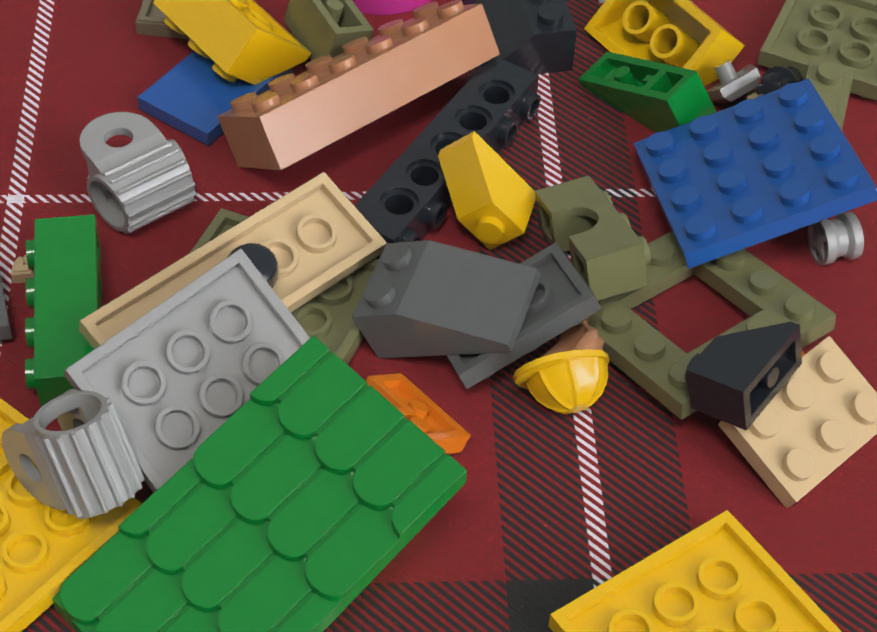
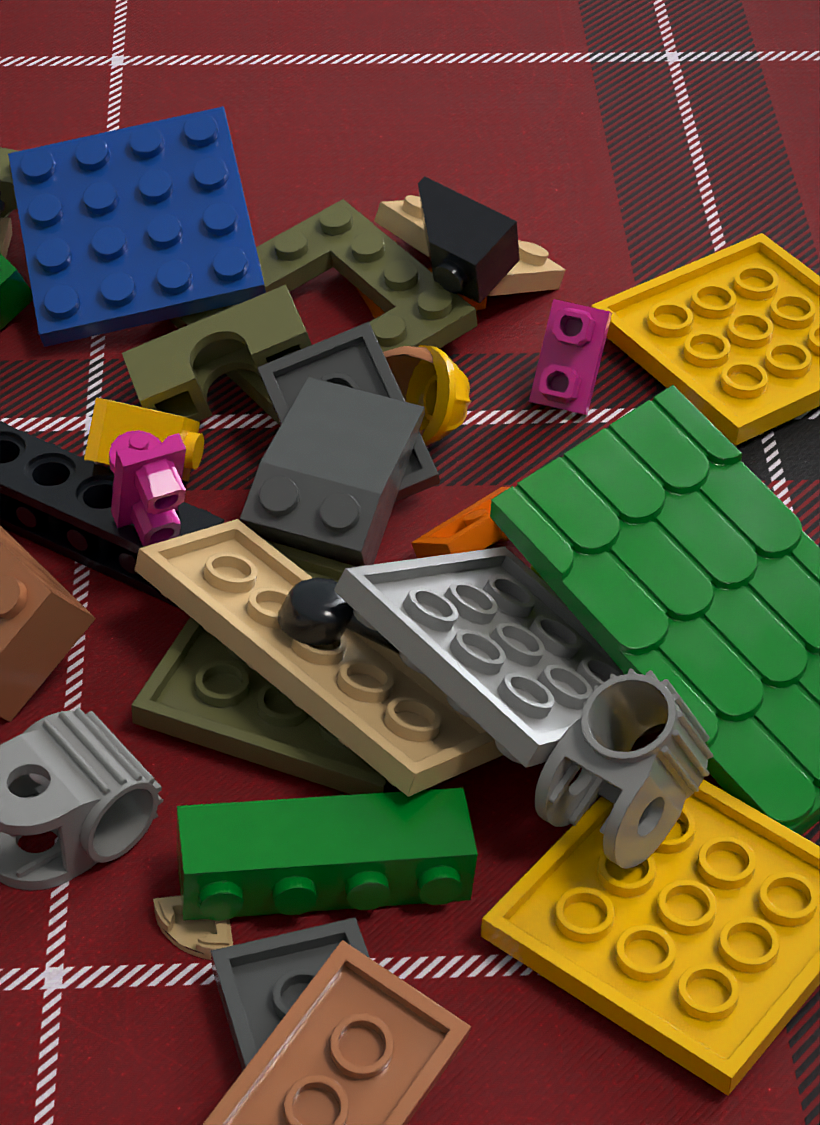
camera: 90 degrees left, 5 degrees down
(382, 169) = (148, 484): none -> dark pink hips
(633, 482) = (570, 357): none -> dark pink hips

